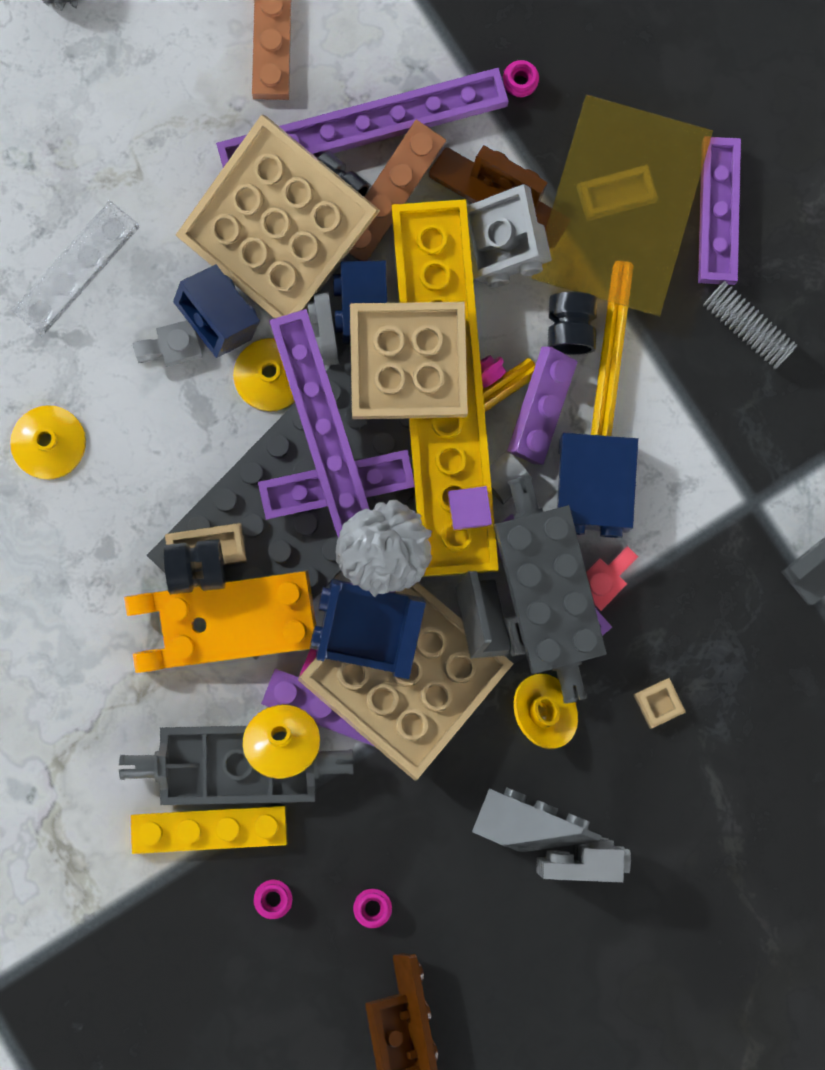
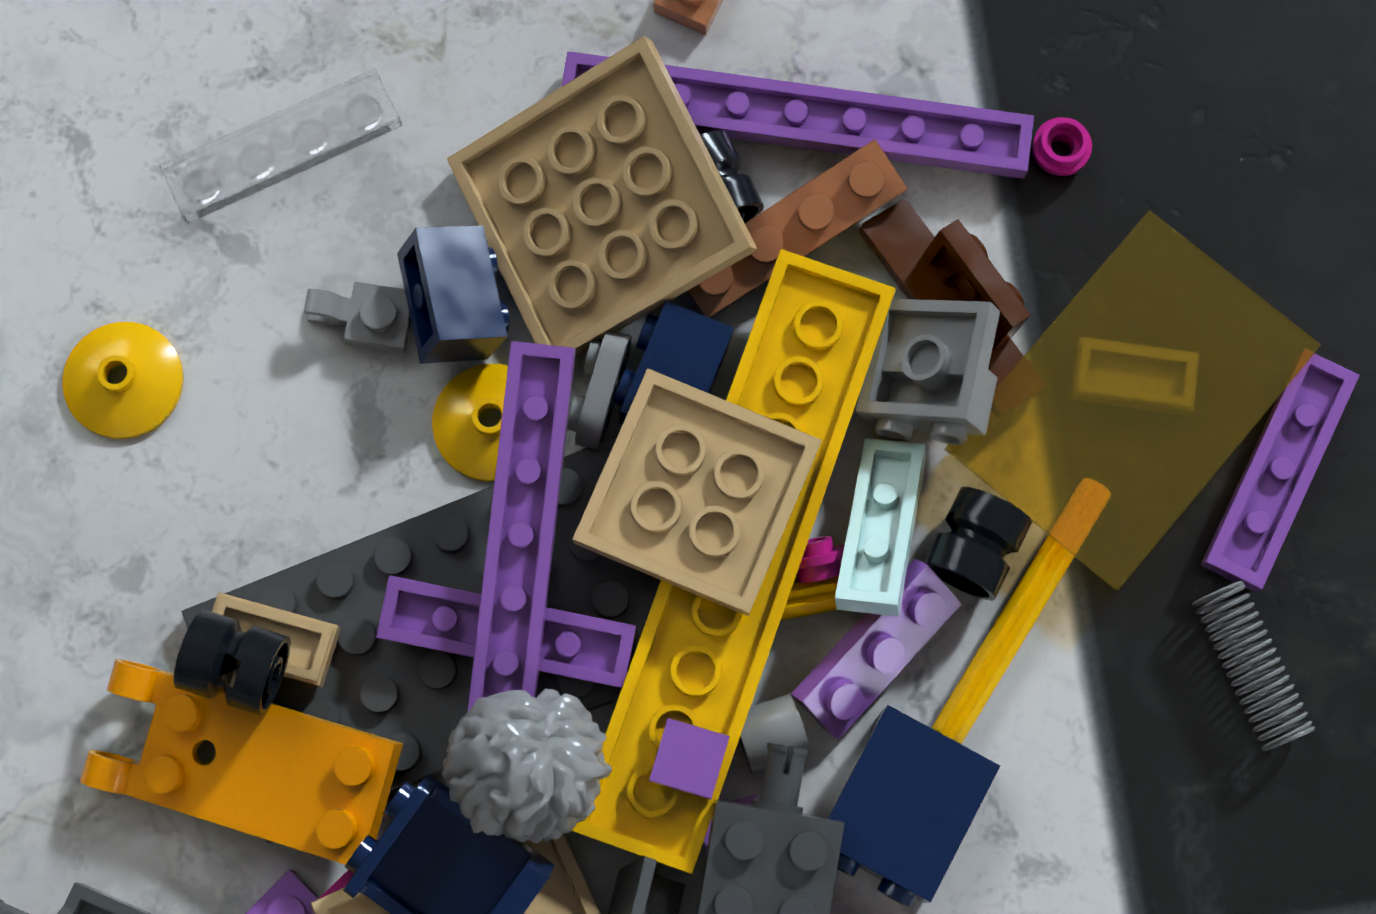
camera: 30 degrees right, 5 degrees down
(516, 337) = (881, 527): none -> light aqua plate

